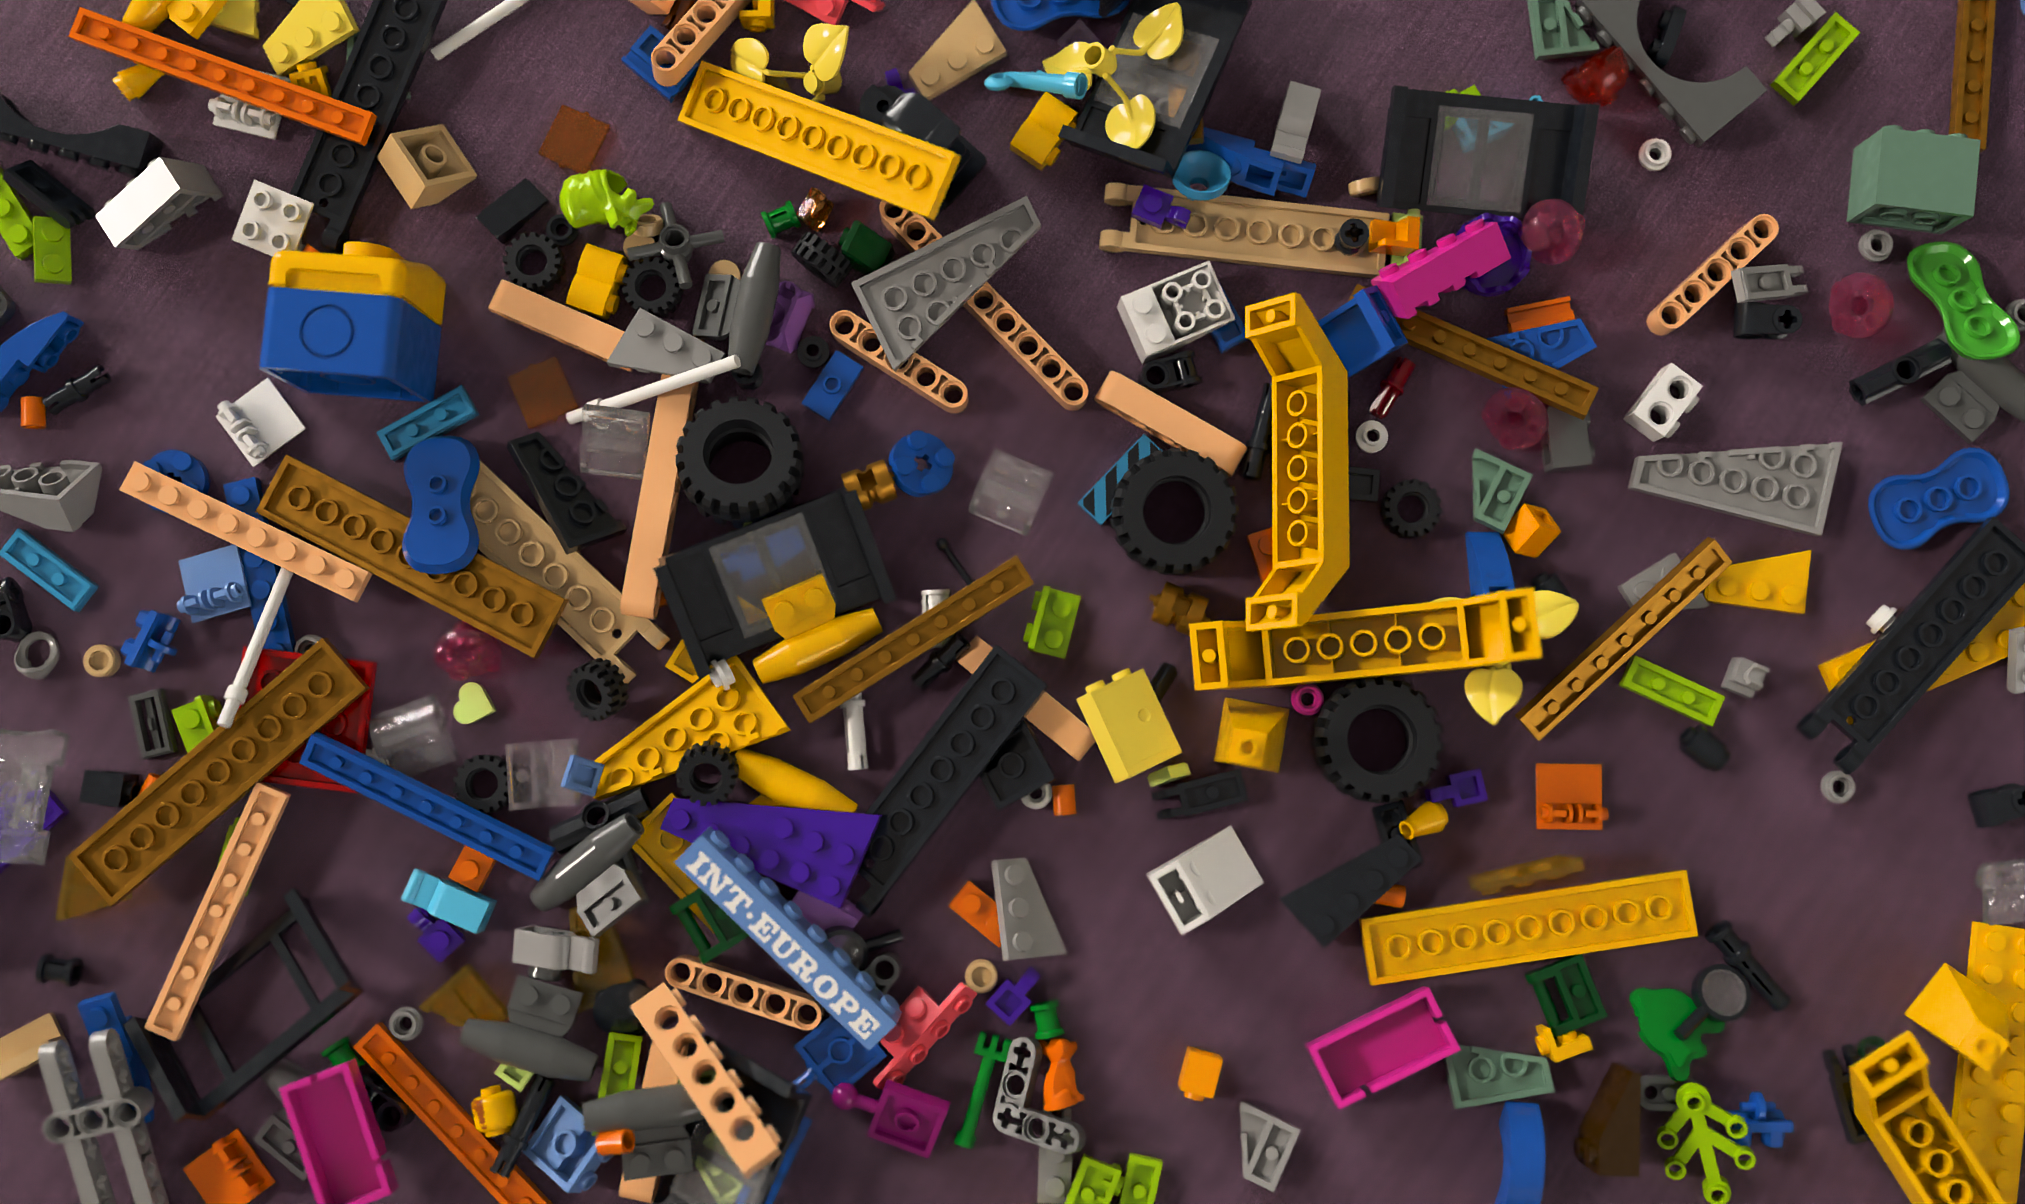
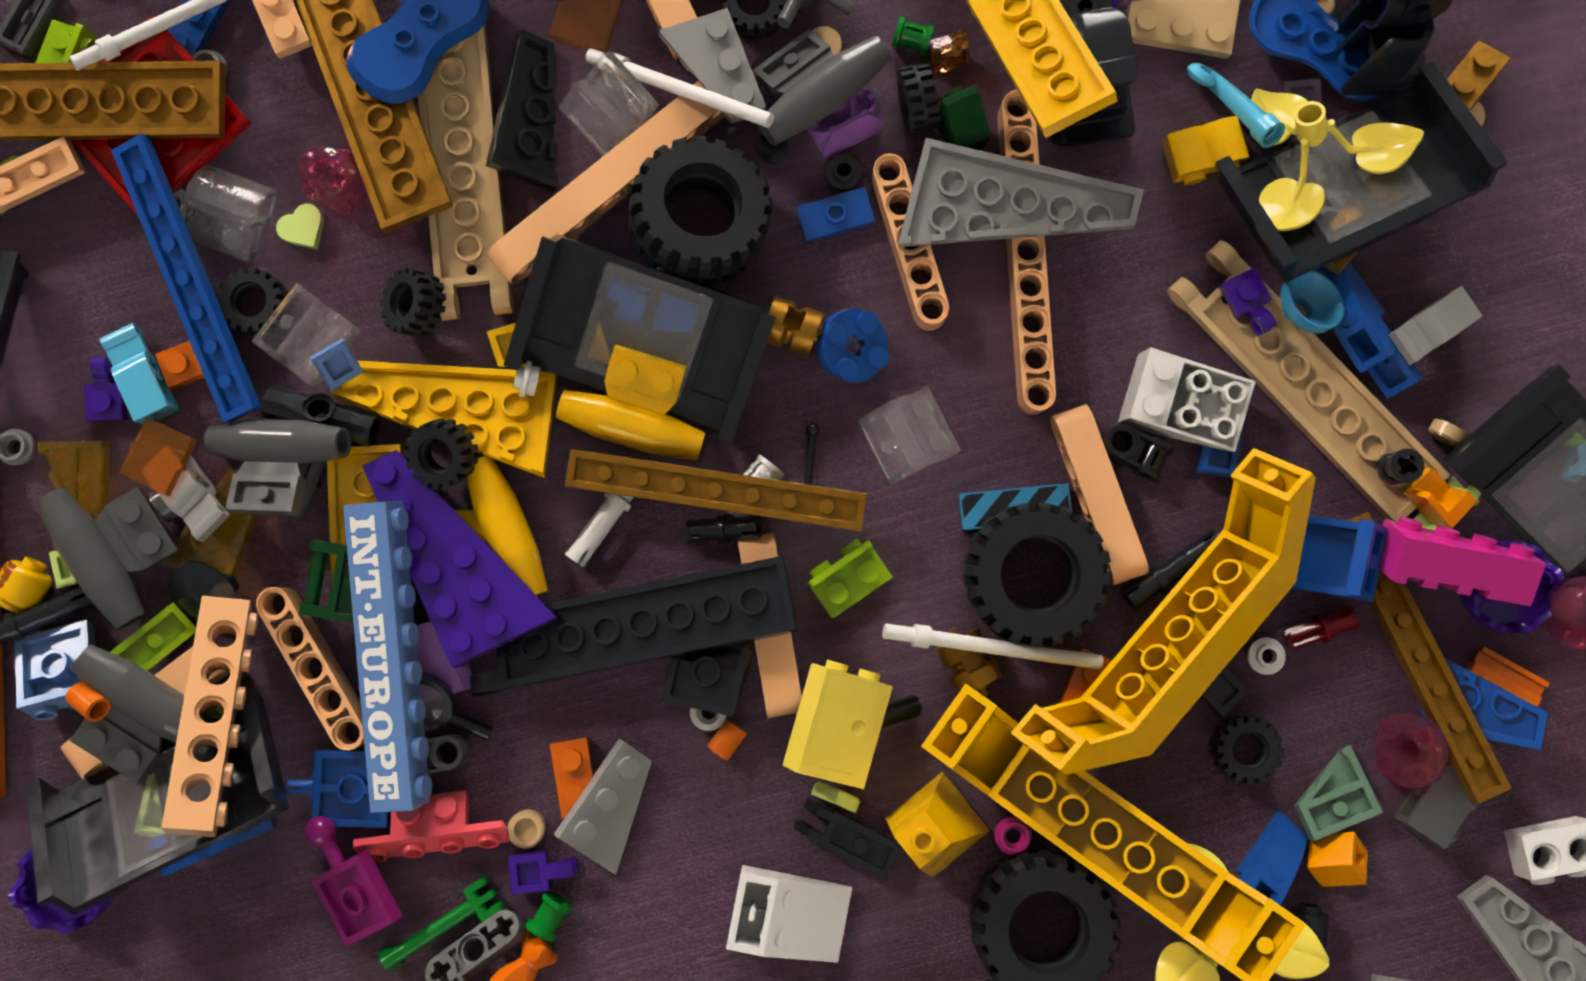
camera: 40 degrees right, 0 degrees up
(514, 942) = (158, 456): none -> clear orange piece
(1135, 616) = (923, 636): none -> white bar

